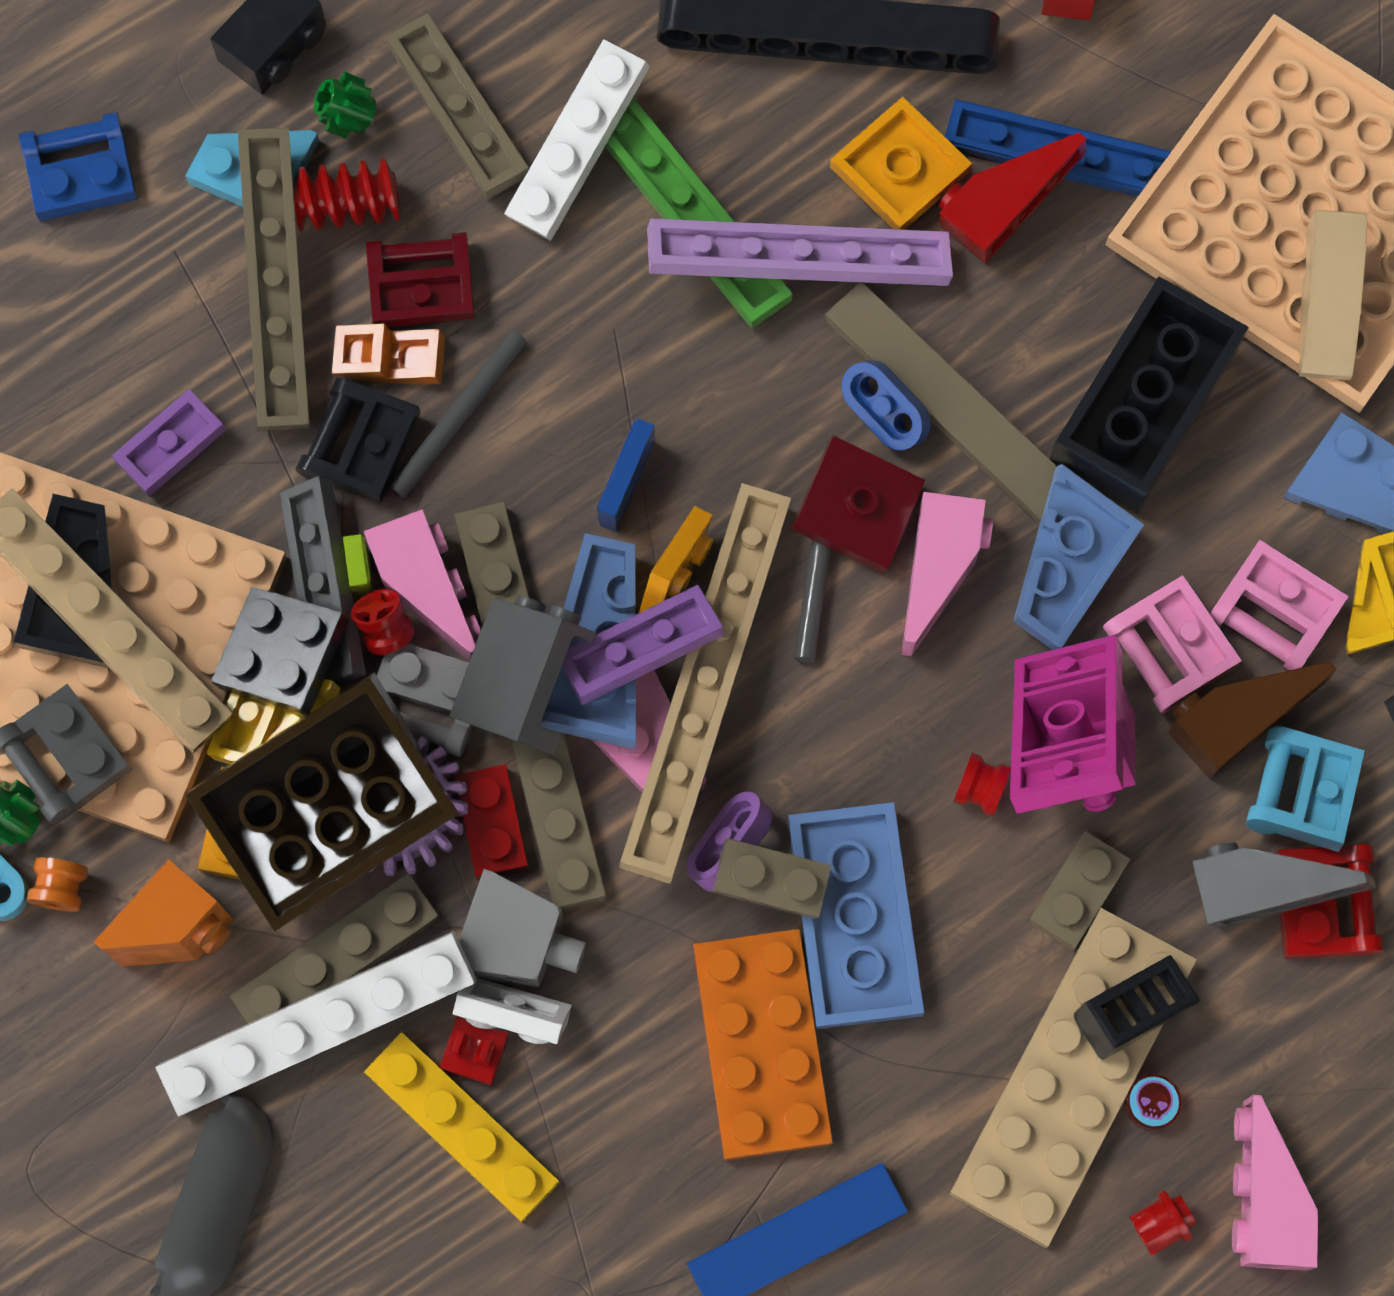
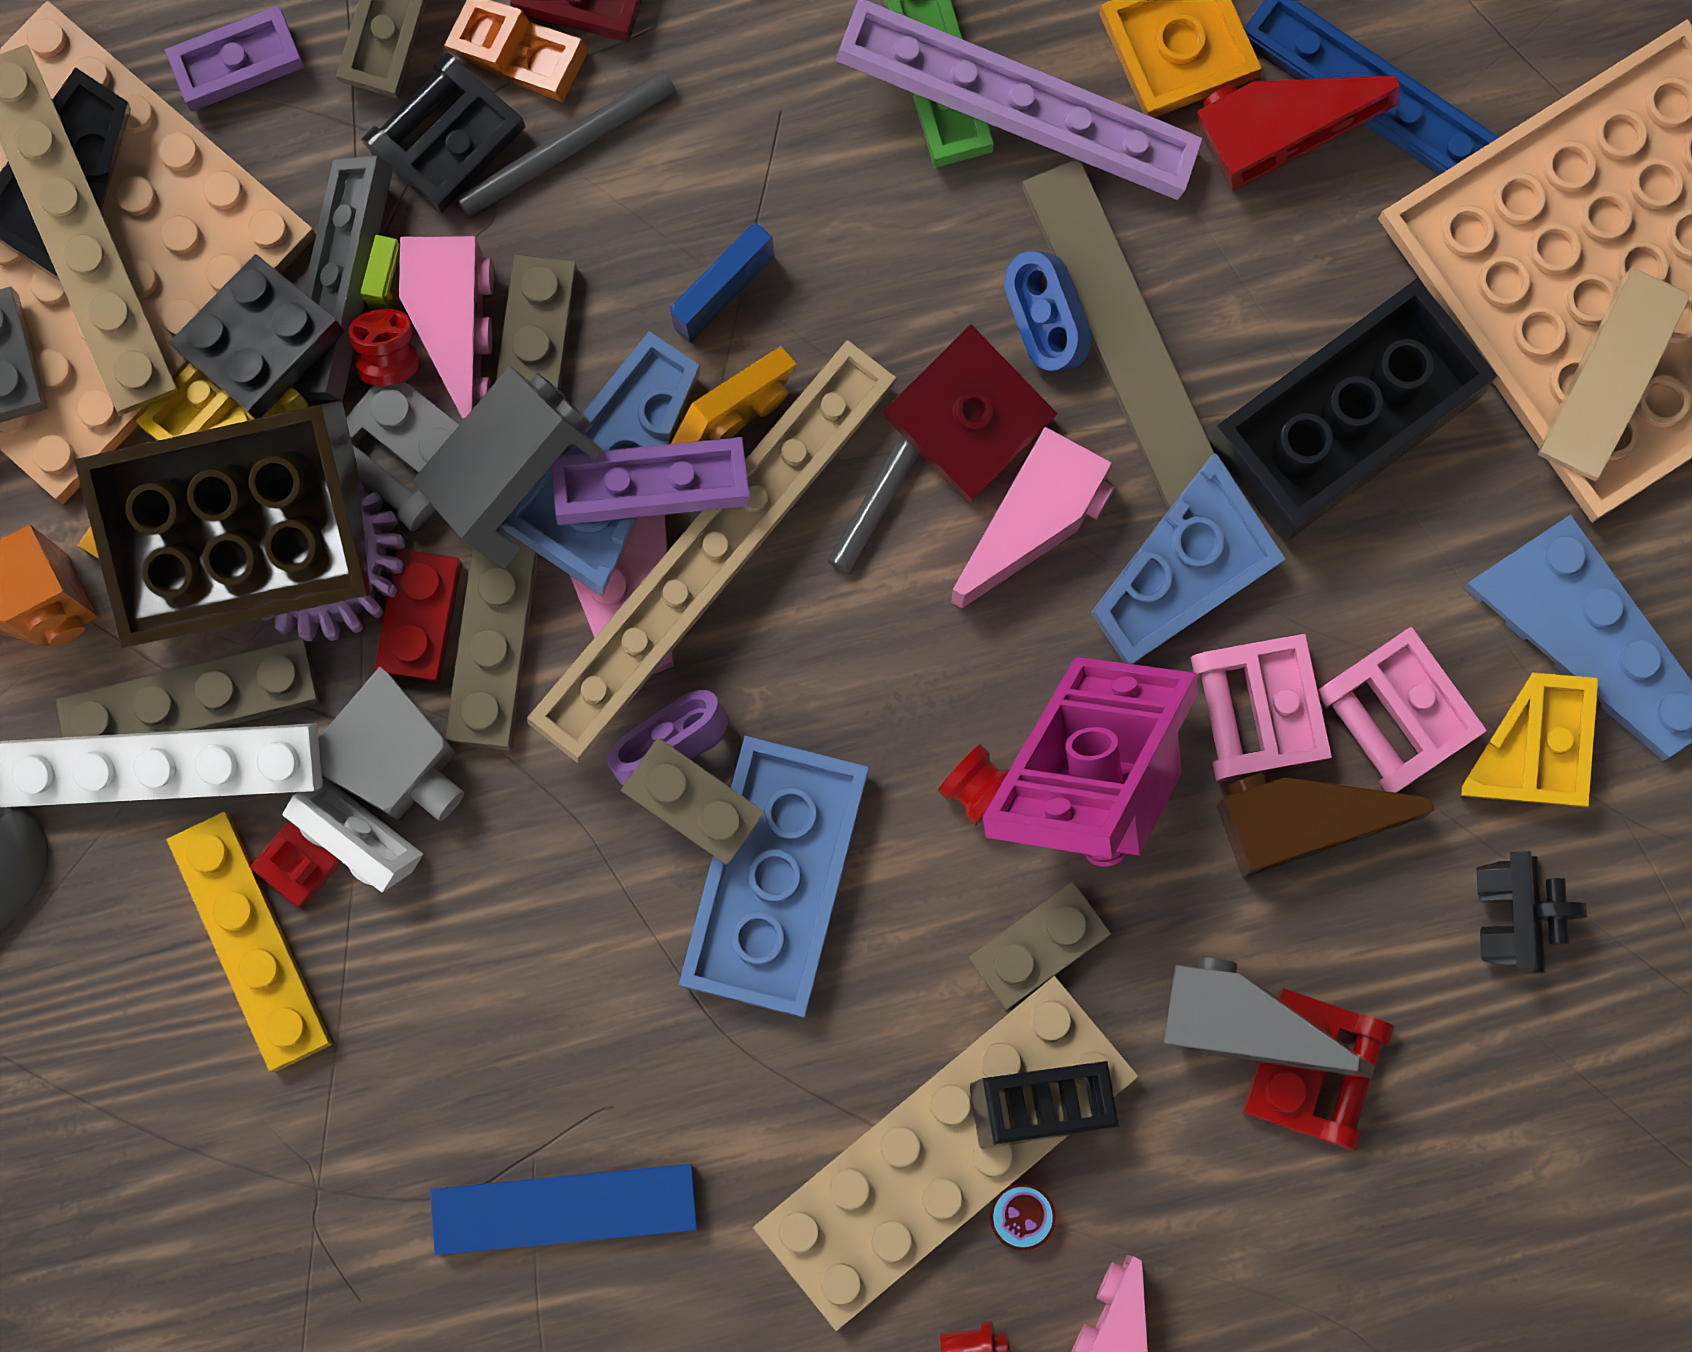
camera: 25 degrees right, 5 degrees up
(762, 1045) = (613, 980): orange plate -> none
(1323, 792) = (1361, 944): medium azure plate -> none

